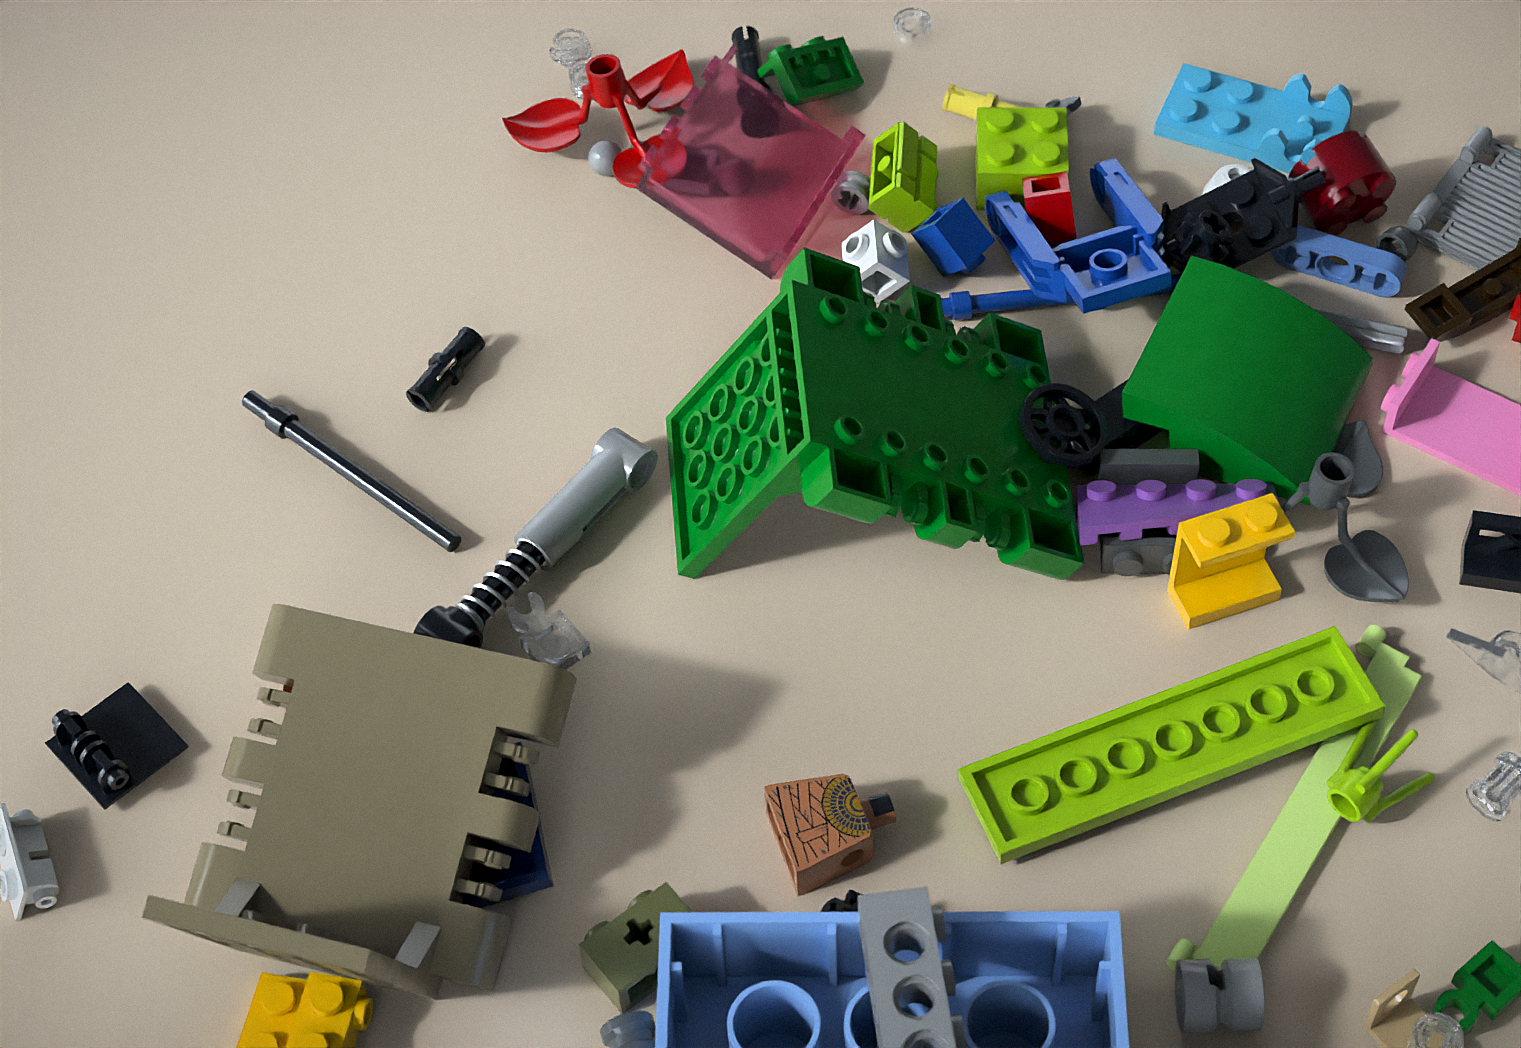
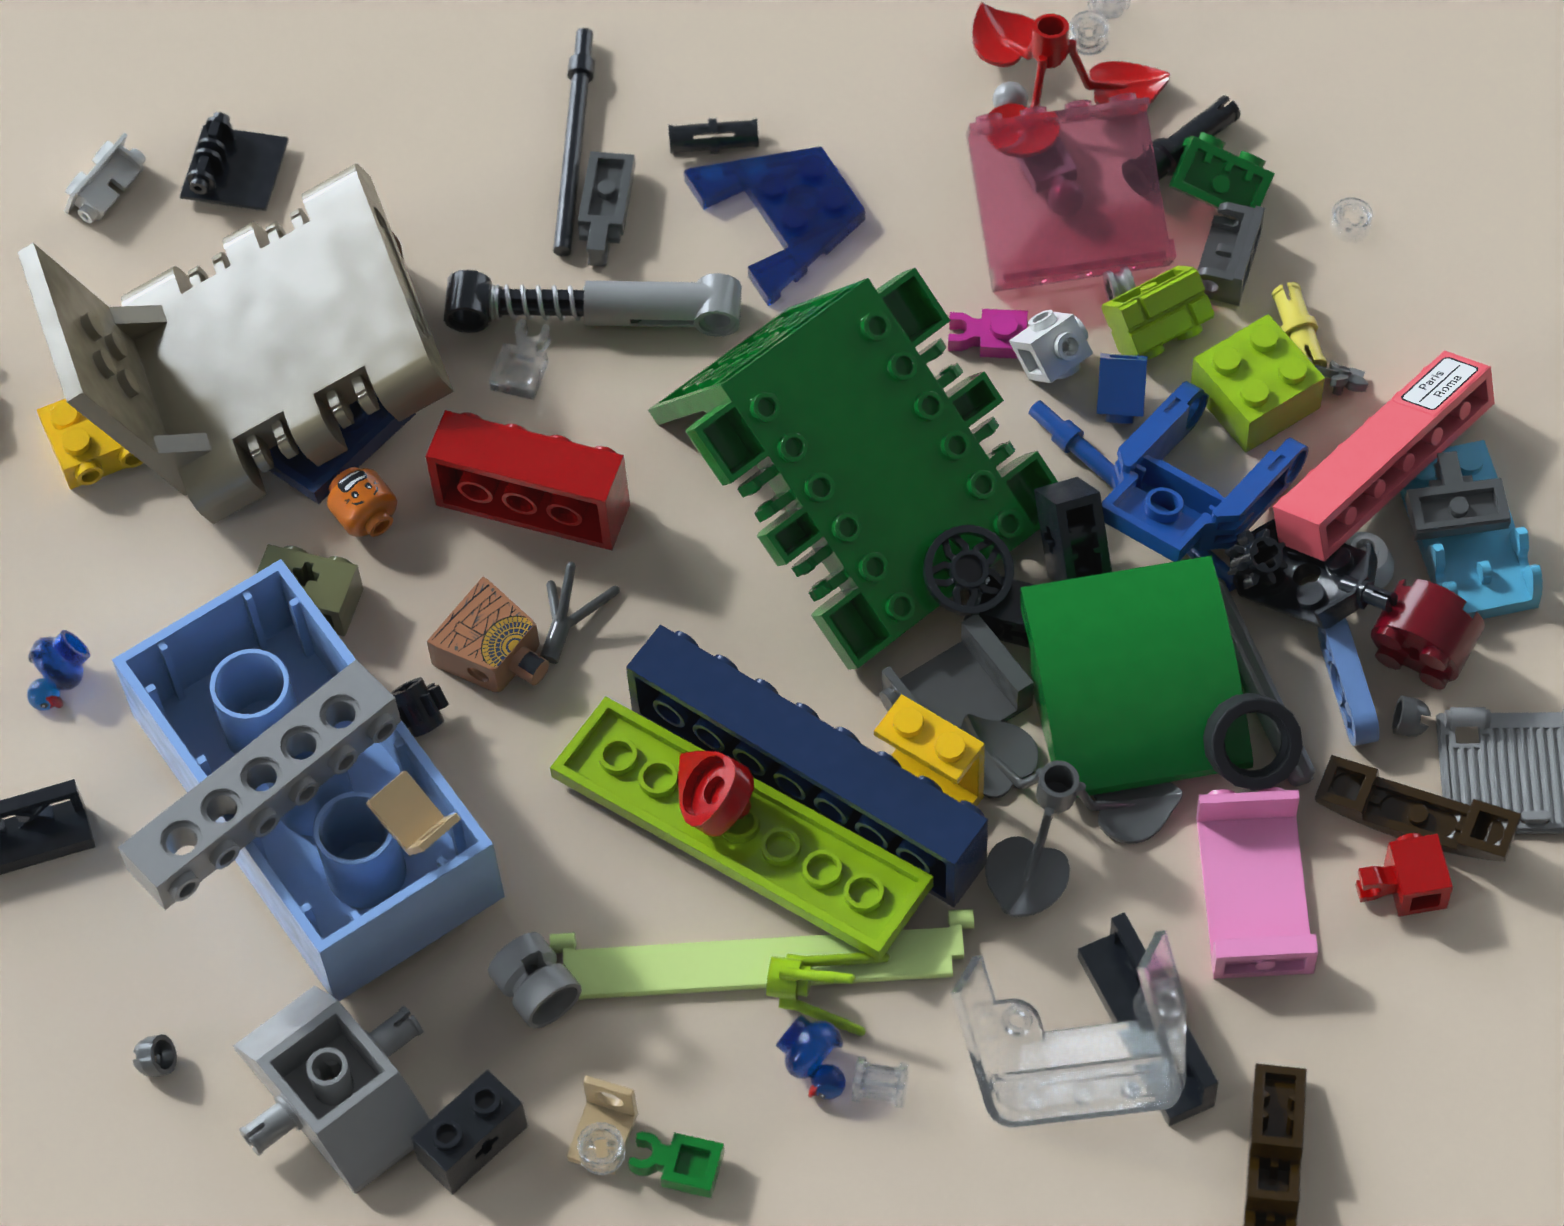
camera: 55 degrees right, 5 degrees up
(440, 482) = (605, 203): none -> dark grey hinge
(564, 350) = (798, 198): none -> clear blue wing
(590, 844) = (361, 502): none -> orange head
(691, 692) = (528, 479): none -> red brick
(842, 745) = (559, 609): none -> dark grey plant
(878, 102) = (1230, 252): none -> dark grey hinge
(1050, 206) = (1209, 433): red brick -> none
(1062, 956) = (410, 814): none -> tan bracket
(1081, 340) = (1072, 530): none -> black brick
(1129, 509) = (960, 694): medium lavender wing -> none
(1137, 730) = (713, 791): none -> red piece
(1151, 646) = (808, 759): none -> dark blue brick
(1166, 117) = (1383, 455): none -> coral brick
(1239, 102) = (1456, 503): none -> dark grey hinge
(1348, 348) = (1282, 764): none -> black tyre
(1439, 821) = (805, 1050): none -> clear blue animal

